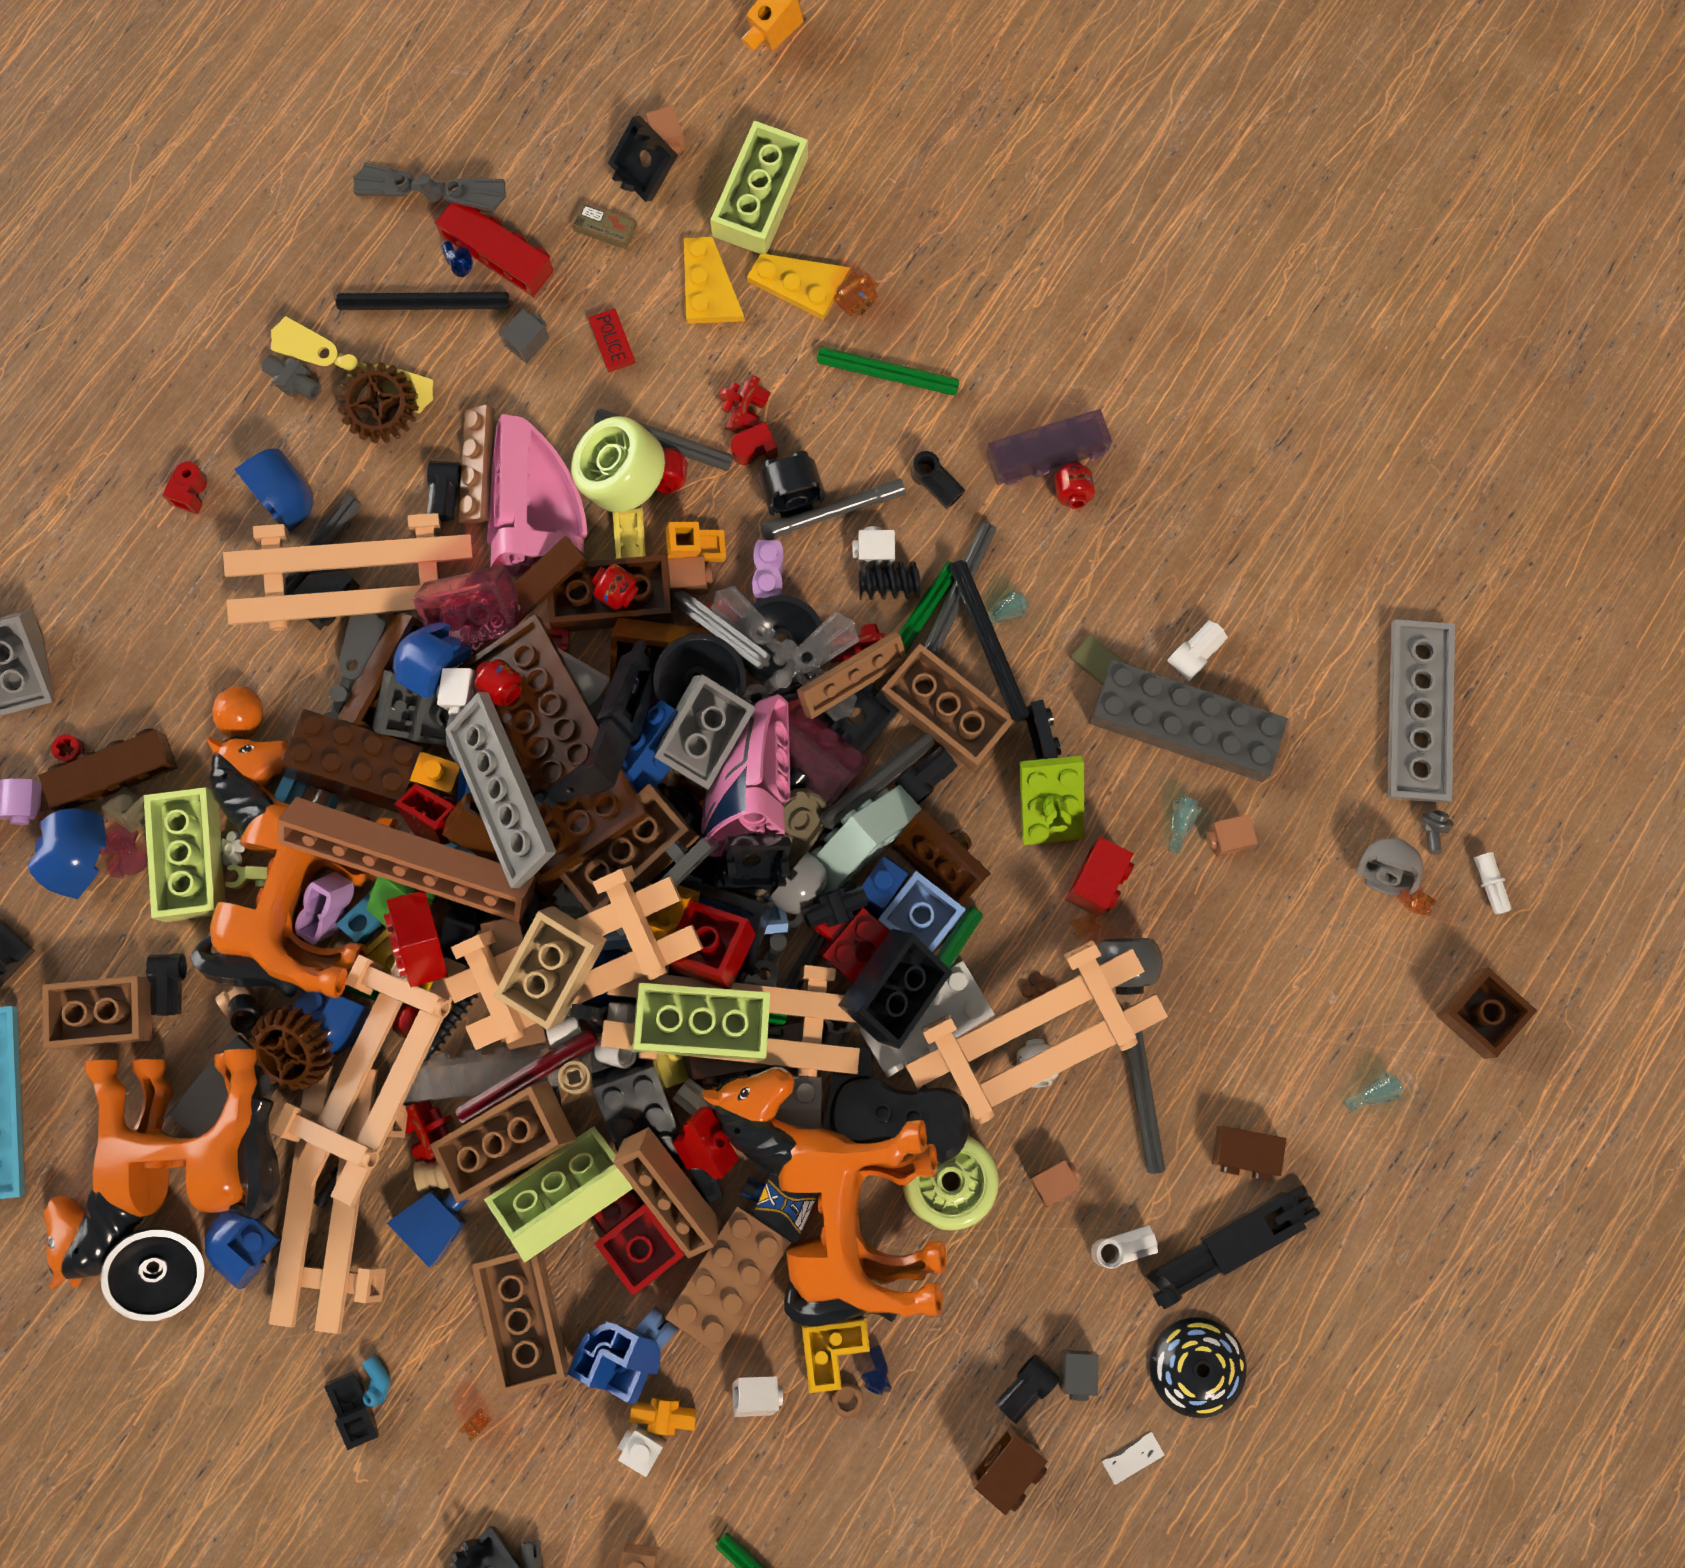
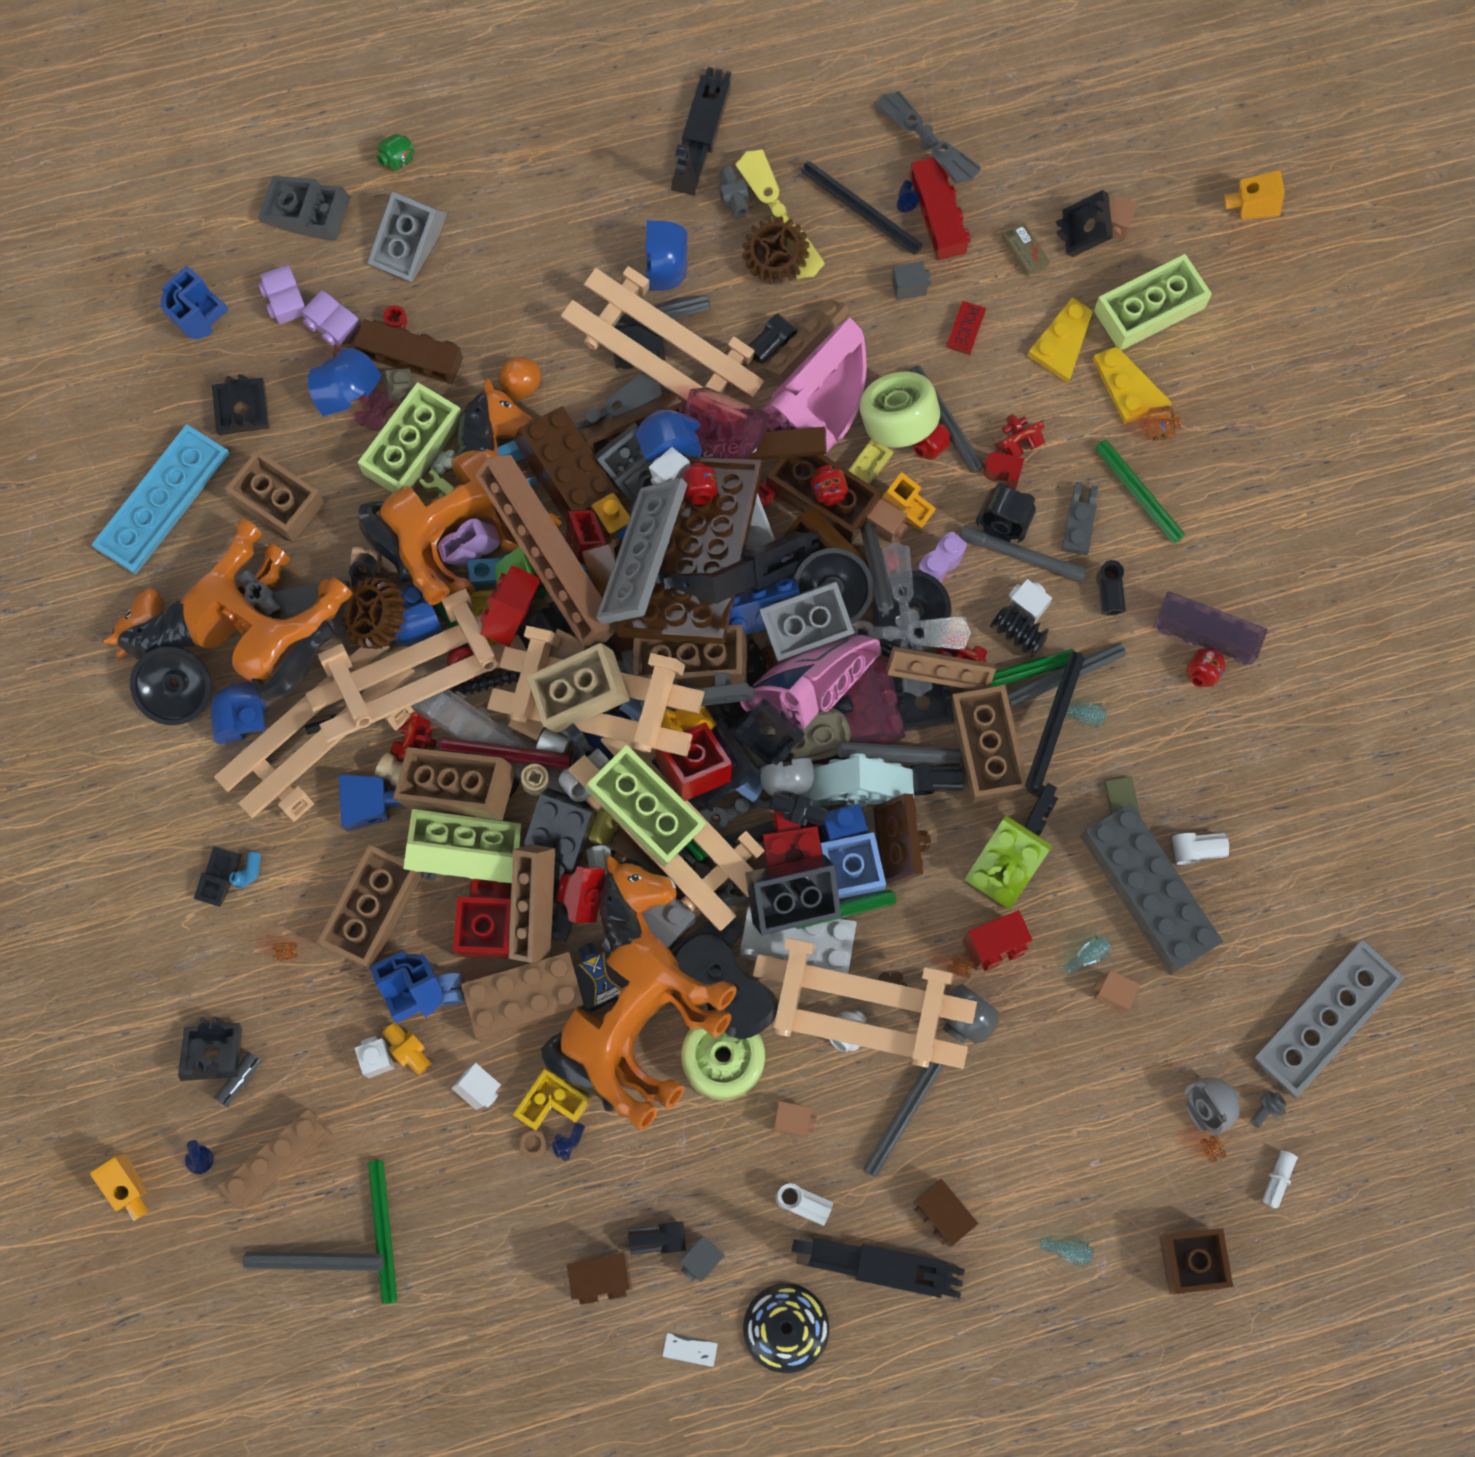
camera: 40 degrees right, 5 degrees down
(165, 1120) = (253, 588): none -> dark grey axle
(166, 977) = (335, 507): black piece -> none
(185, 486) = (606, 210): red leg -> none
(210, 341) = (700, 130): none -> black hinge
(858, 440) = (1080, 522): none -> dark grey hinge

